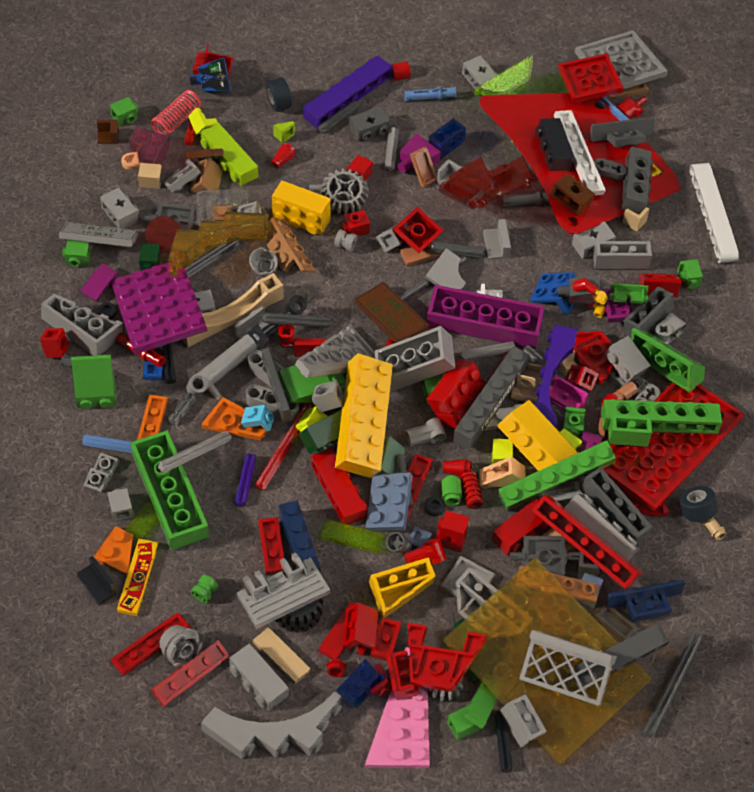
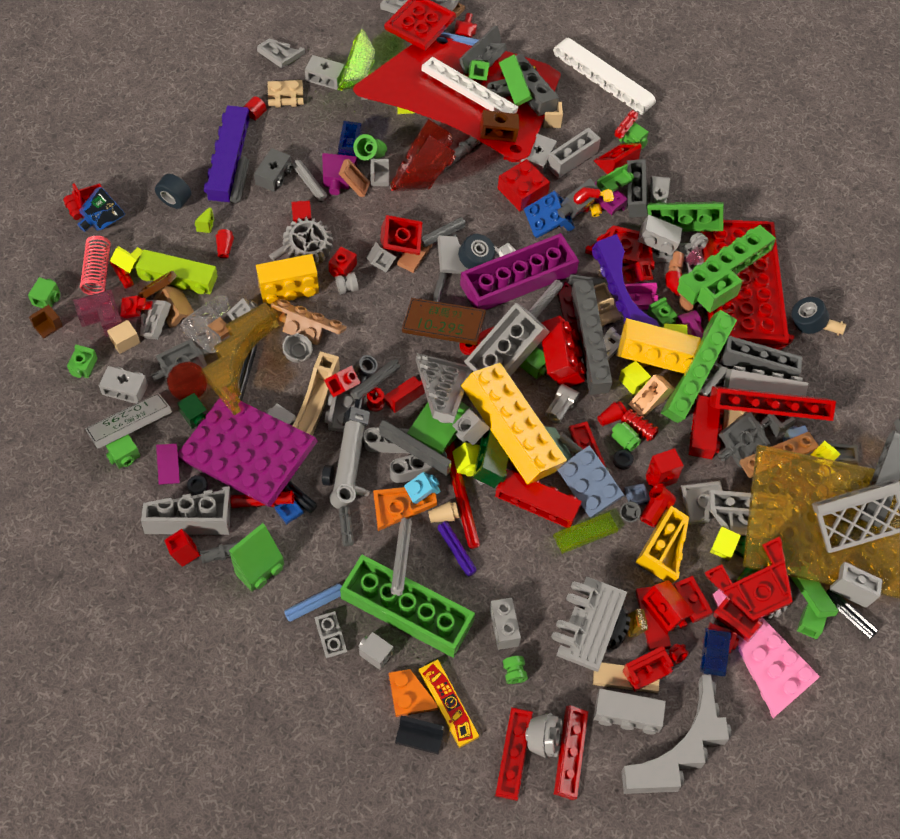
camera: 40 degrees left, 5 degrees up
(106, 175) = (82, 361): none -> bright green brick
(131, 161) = (91, 335): light nougat tile -> none
(143, 522) = (406, 651): clear neon green tile -> none
(153, 416) = (329, 554): orange tile -> none
(175, 158) = (133, 305): none -> red plate
(200, 363) = (327, 475): none -> black tile
(227, 552) = (505, 623): none -> light grey brick
(261, 449) = (445, 512): none -> tan cone
(268, 303) = (342, 381): none -> red brick
(271, 545) = (532, 590): red plate -> none
(297, 532) = (548, 566): dark blue brick -> none
(299, 657) = (648, 668): none -> red hinge
(326, 623) = (638, 623): none -> clear yellow plate
(427, 94) = (303, 109): medium blue pin -> none
(438, 70) = (285, 93): none -> tan plate
(448, 616) = (725, 543): none -> neon yellow panel
(453, 149) = (369, 148): none -> bright green plant
(458, 281) = (476, 251): none -> black wheel
(459, 40) = (279, 52): none -> light grey wing
(497, 241) = (467, 203): light grey panel -> none
(554, 144) = (447, 92): black brick -> none
(556, 253) = (523, 185): none -> red brick
(598, 610) = (826, 451): none -> neon yellow panel
(599, 142) = (478, 70): none -> bright green brick
(622, 168) = (515, 80): none -> bright green tile
(642, 395) = (693, 257): none -> clear pink plate
(646, 601) = (847, 420): dark blue bracket -> none
(658, 386) = (698, 241): none -> light grey plate
(686, 258) = (626, 124): none -> red axle

